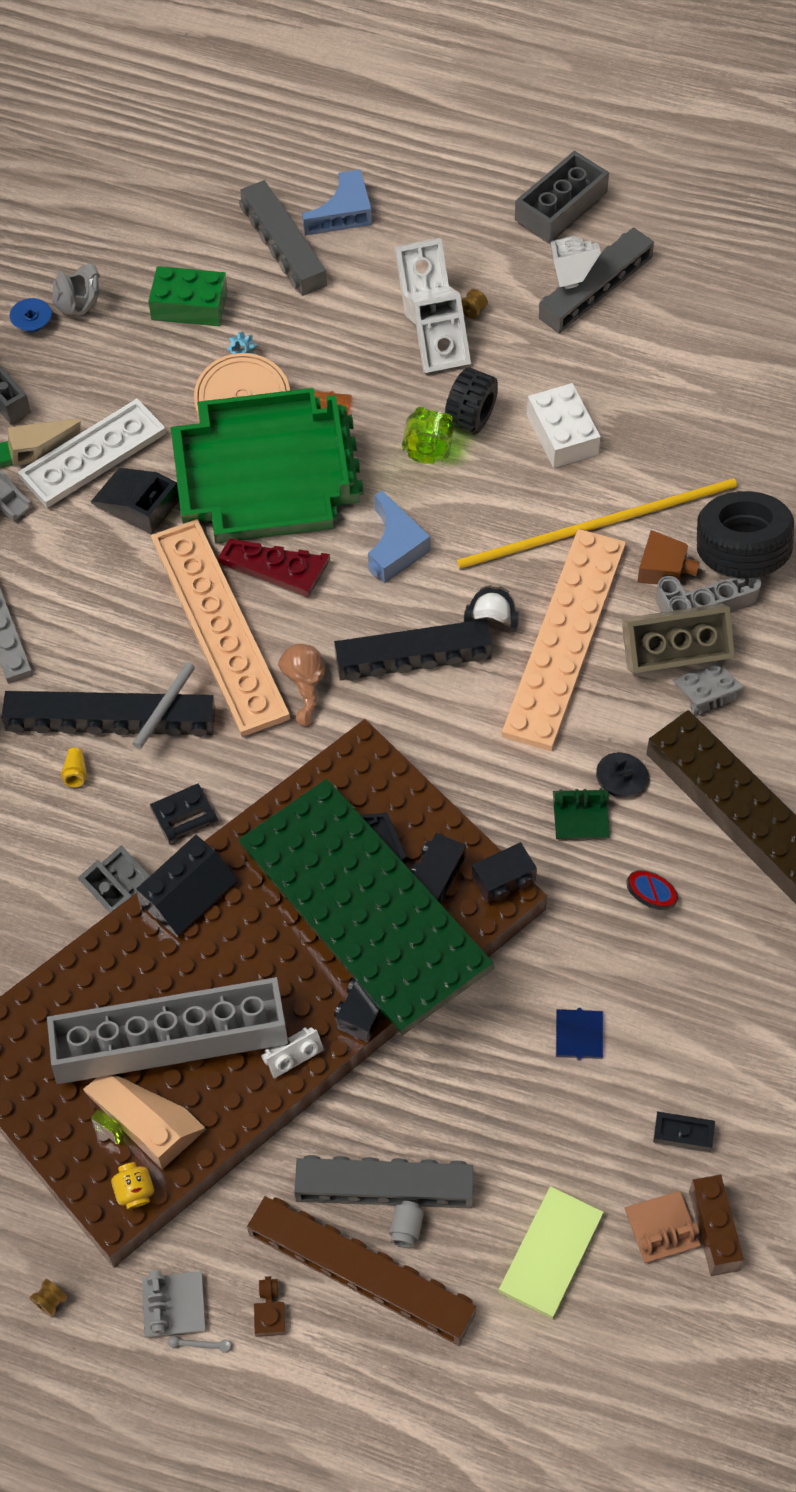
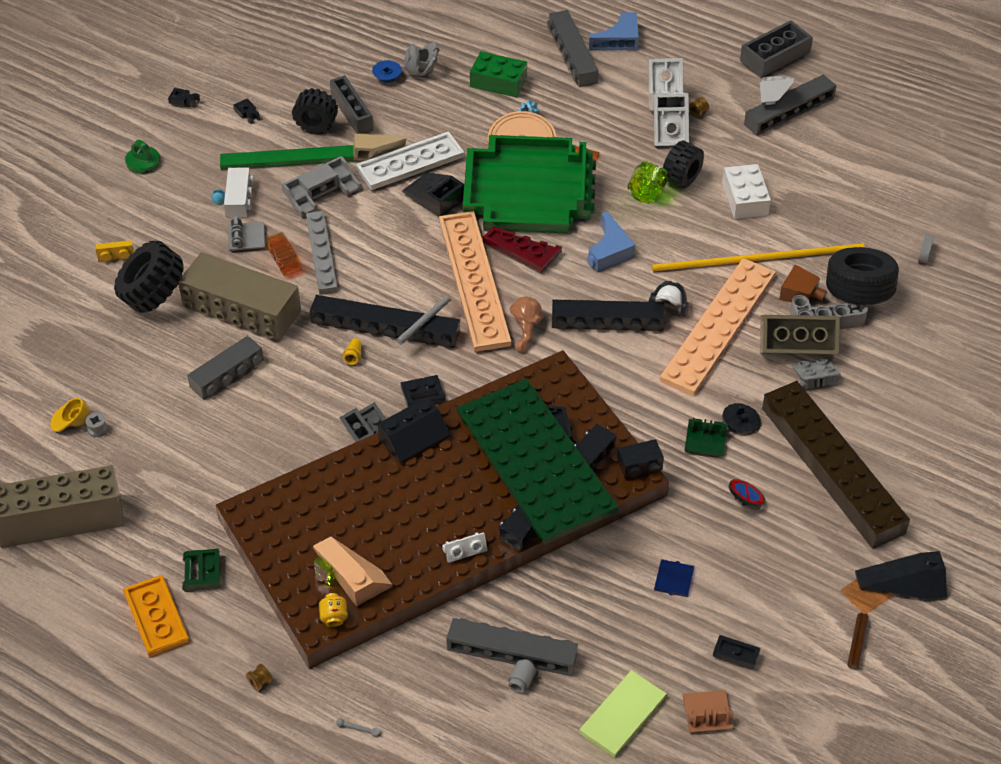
camera: 10 degrees right, 10 degrees down
(166, 1030) = (379, 515): light grey brick -> none
(173, 1303) = (345, 697): light grey hinge -> none
(269, 1316) = (412, 718): reddish brown plate -> none
(362, 1270) = (484, 700): reddish brown brick -> none
(716, 1225) = (746, 715): reddish brown brick -> none

